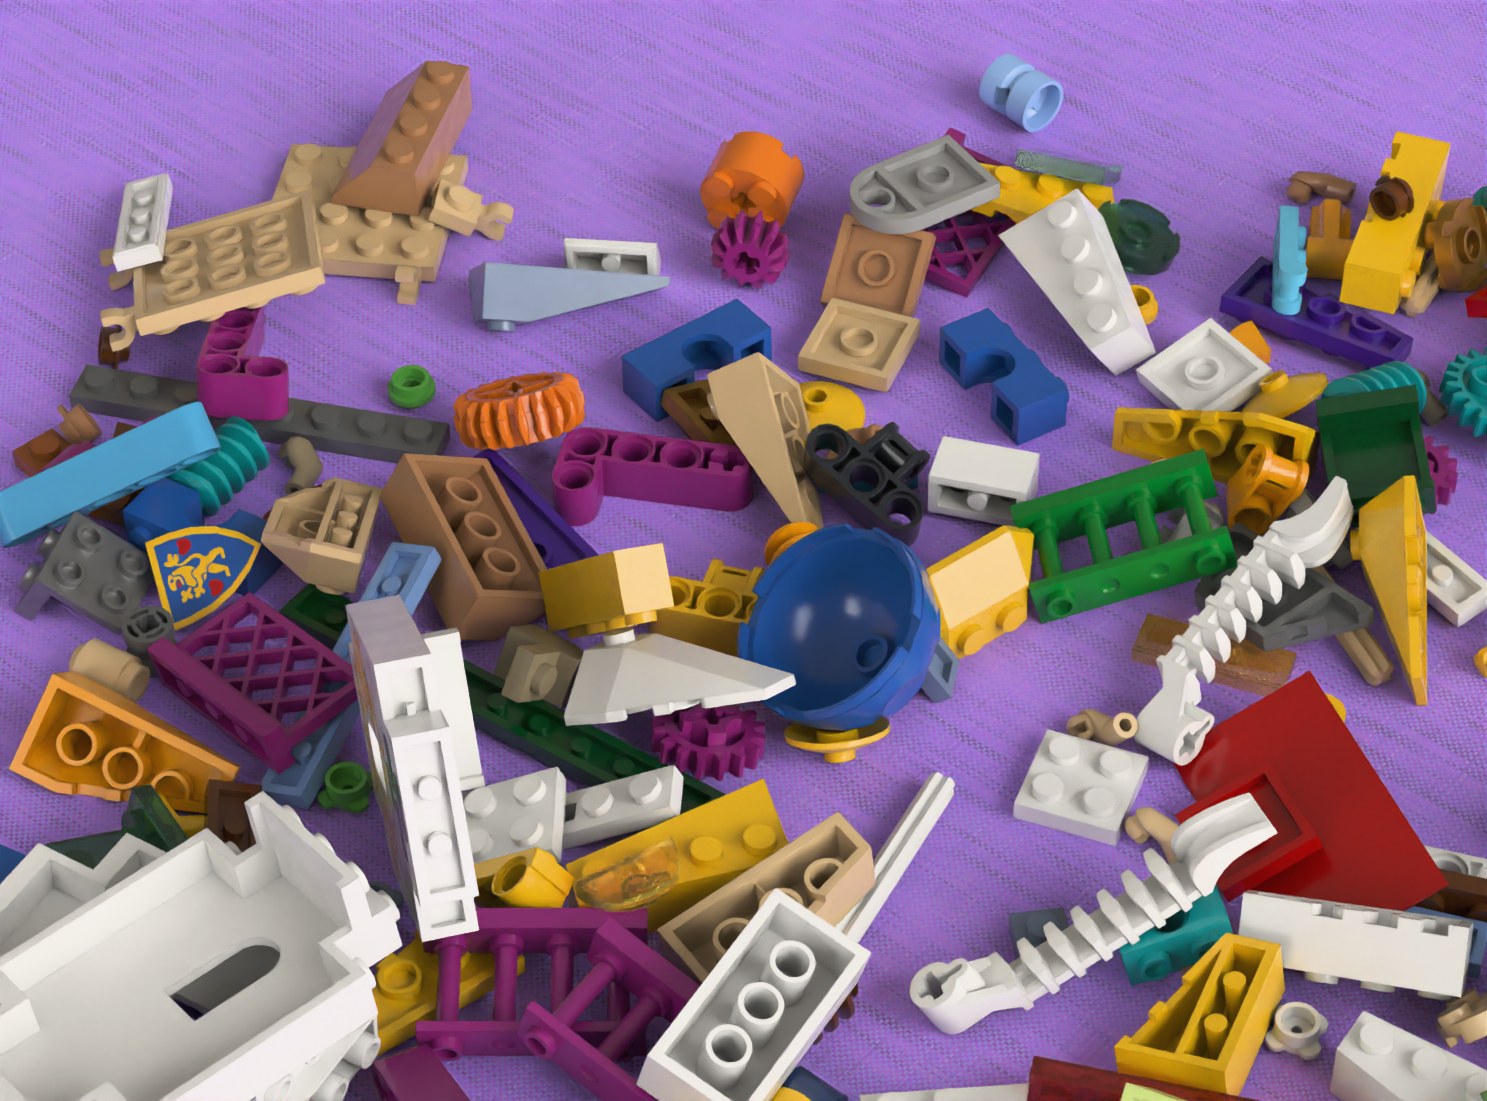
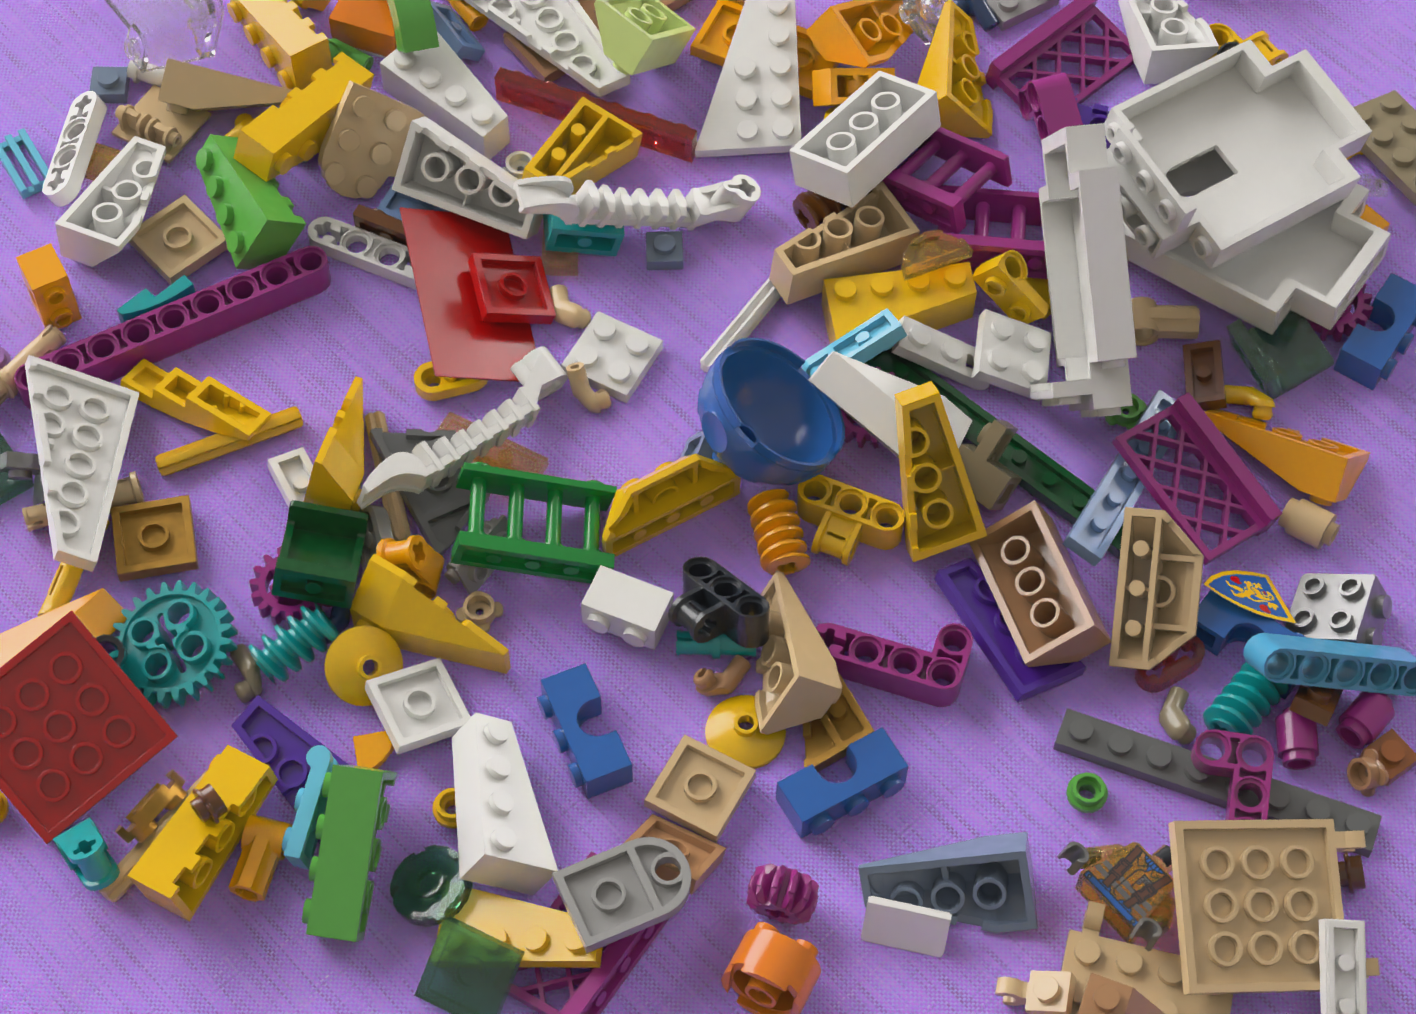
camera: 175 degrees left, 15 degrees up
(143, 628) = (1281, 544): dark grey wheel -> none
(366, 298) = (1130, 884): none -> torso
(519, 410) = (1031, 715): orange gear -> none
(734, 761) = (862, 342): none -> medium azure plate
(1232, 236) = (347, 851): none -> bright green wedge
(1322, 184) = (243, 944): medium nougat arm -> none

